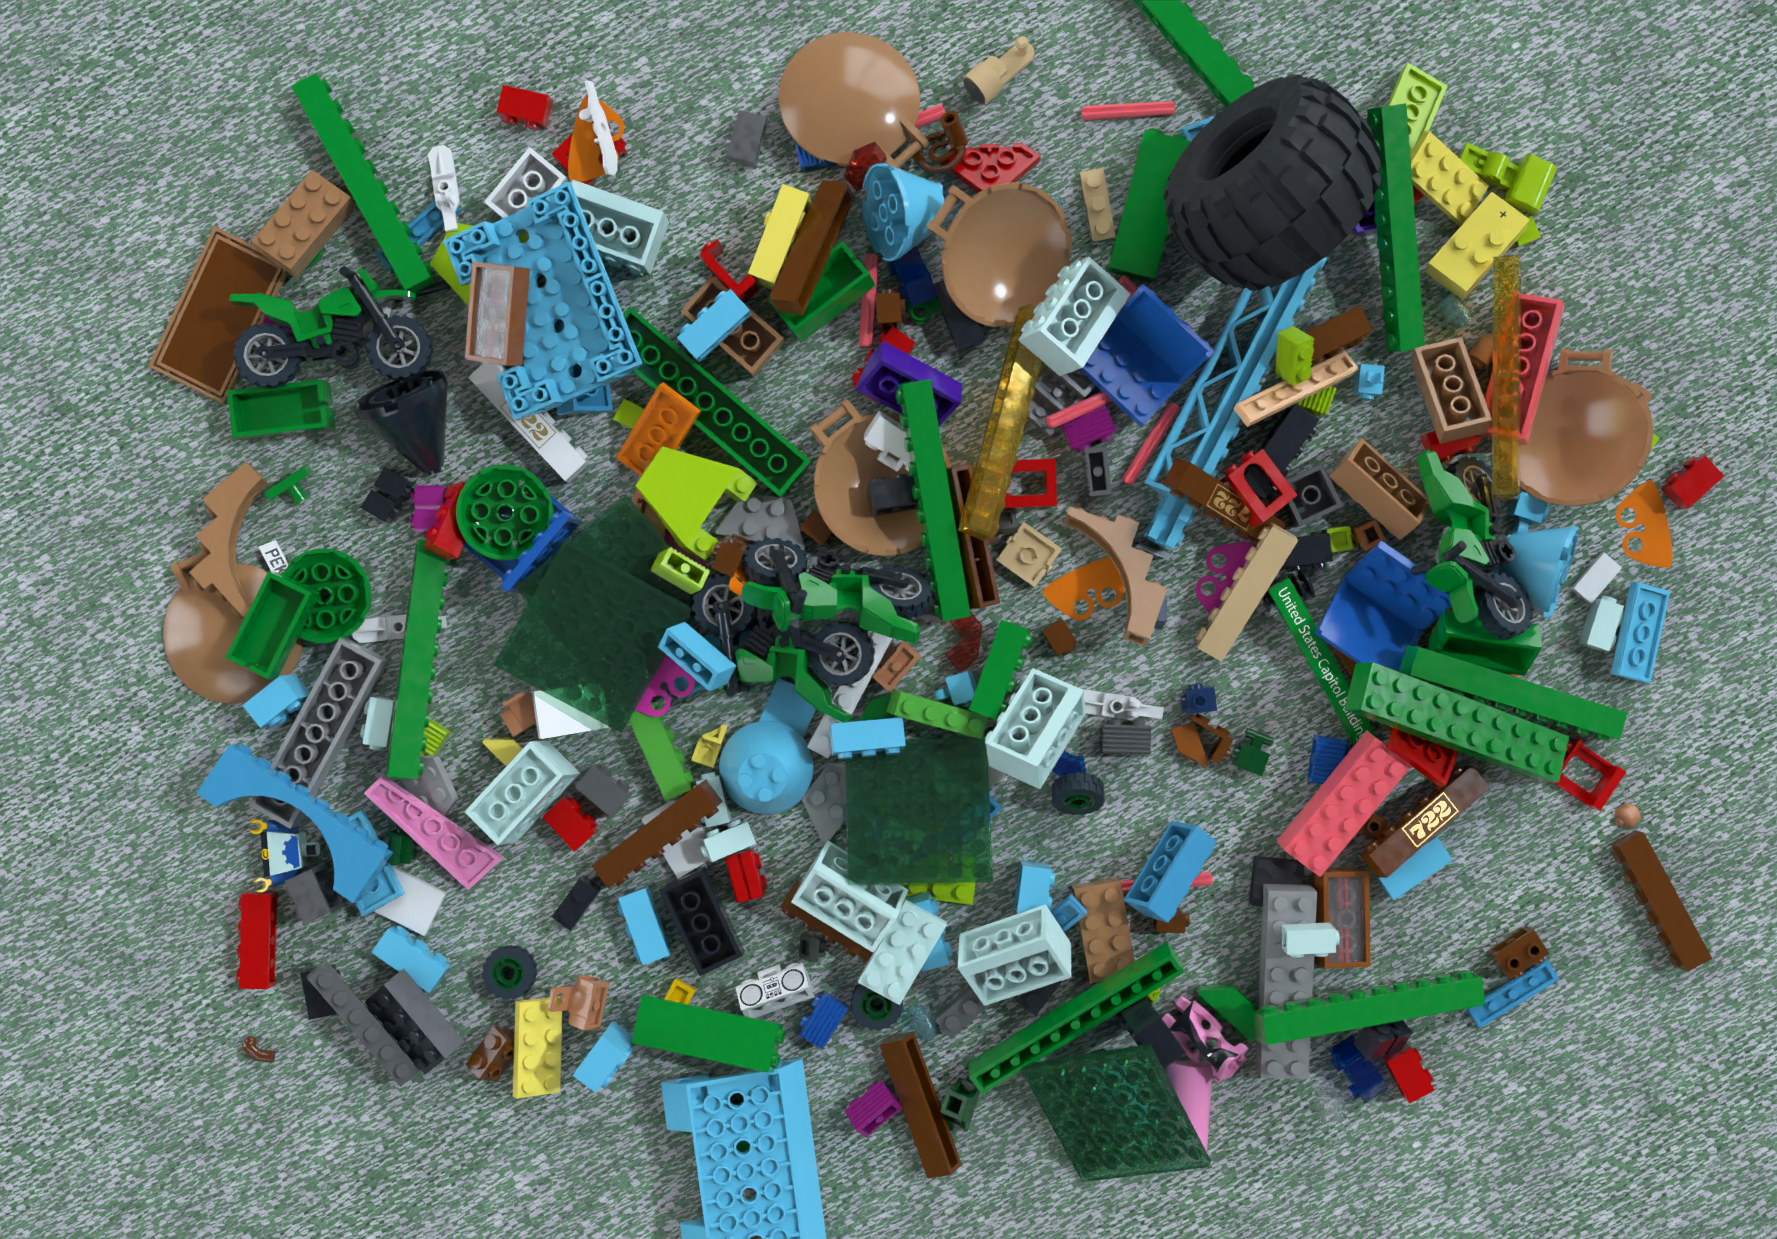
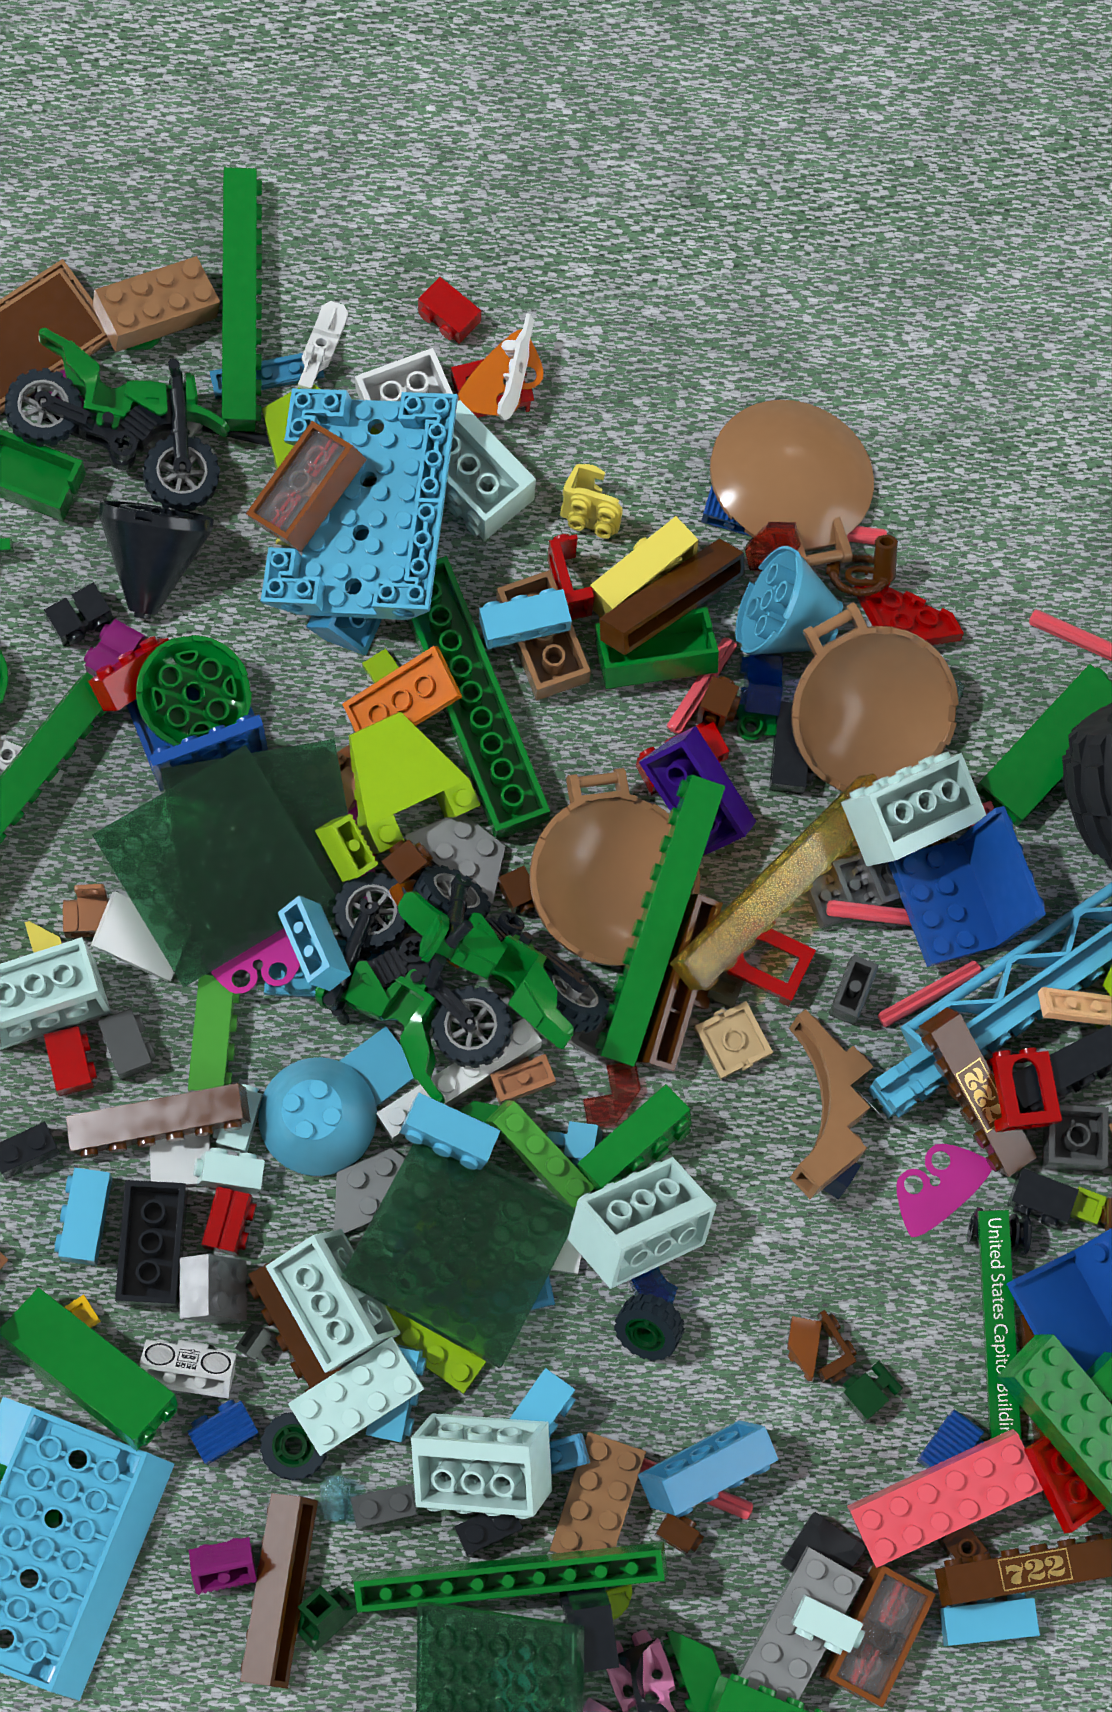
camera: 15 degrees right, 15 degrees down
(536, 429) = (274, 625): white brick -> none
(709, 747) = (267, 1062): light yellow slope -> none
(712, 210) = (586, 505): none -> light yellow piece
(746, 138) = (662, 458): flat silver brick -> none
(762, 931) = (213, 1289): none -> flat silver brick
(887, 436) = (647, 829): white piece -> none
(891, 495) = (616, 895): black brick -> none
(990, 76) = (952, 528): tan piece -> none
(1059, 638) = (719, 1147): reddish brown brick -> none
(1074, 586) = (767, 1102): orange piece -> none
(1088, 429) = (869, 940): magenta brick -> none
(1097, 205) = (999, 717): tan plate -> none
(1101, 704) = (728, 1247): white piece -> none
(1125, 738) = (735, 1297): dark grey brick -> none
(1198, 699) = (839, 1298): dark blue brick -> none
(1246, 591) = (953, 1202): tan brick -> none

